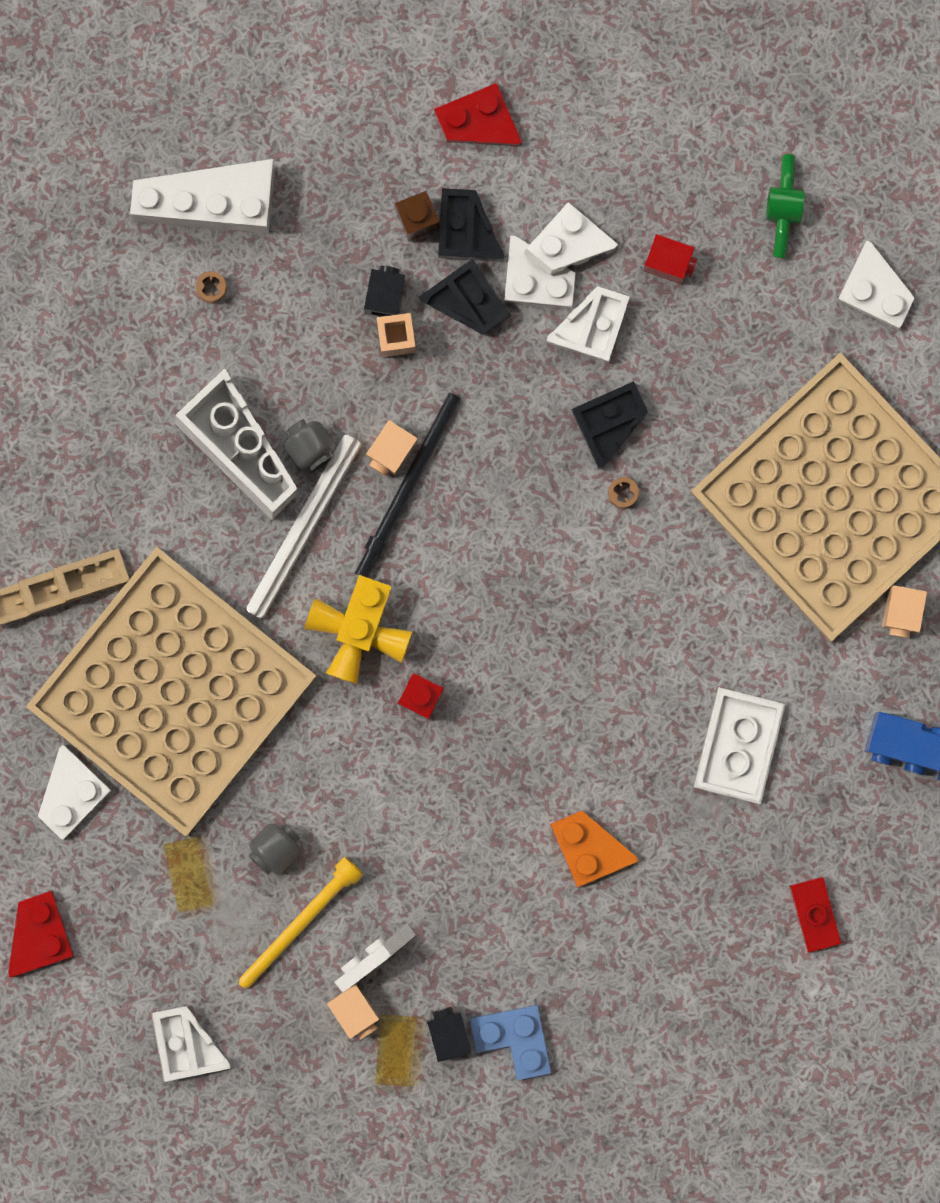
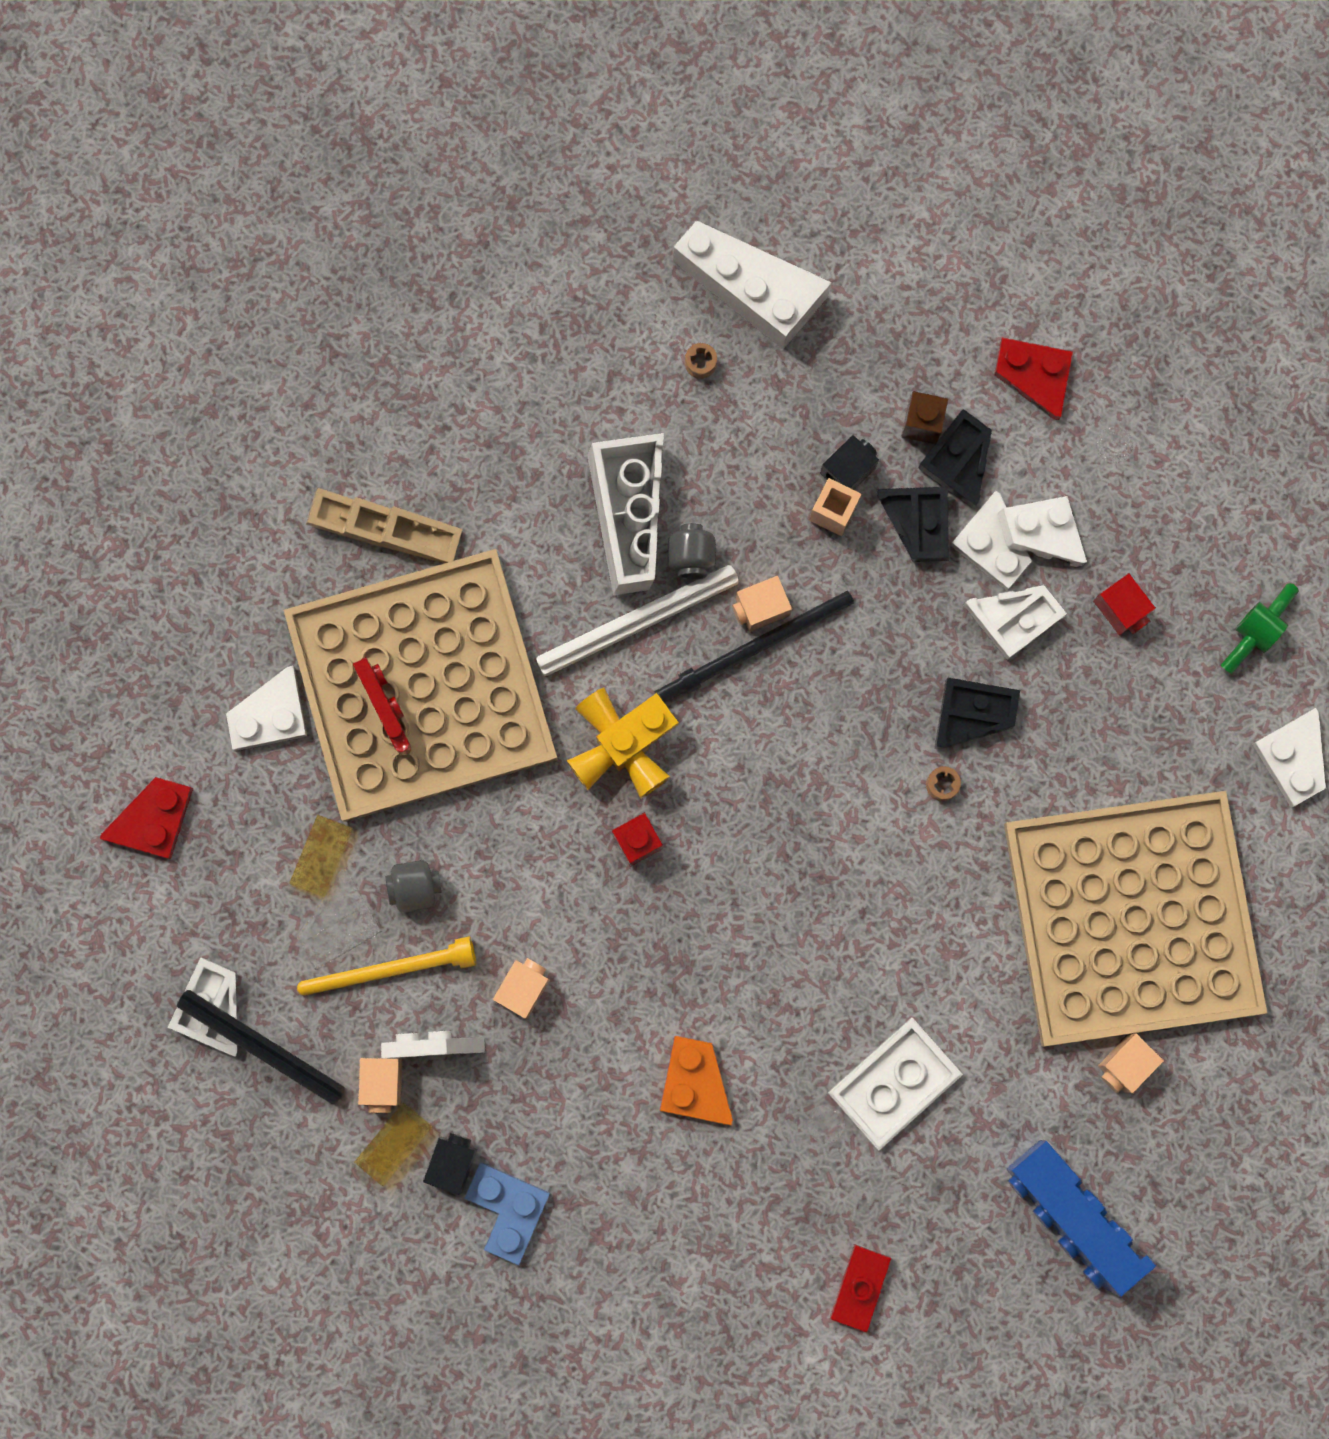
camera: 35 degrees right, 5 degrees down
(162, 729) = (387, 709): none -> red hinge
(245, 1047) = (260, 1047): none -> black axle
(411, 867) = (522, 987): none -> light nougat brick

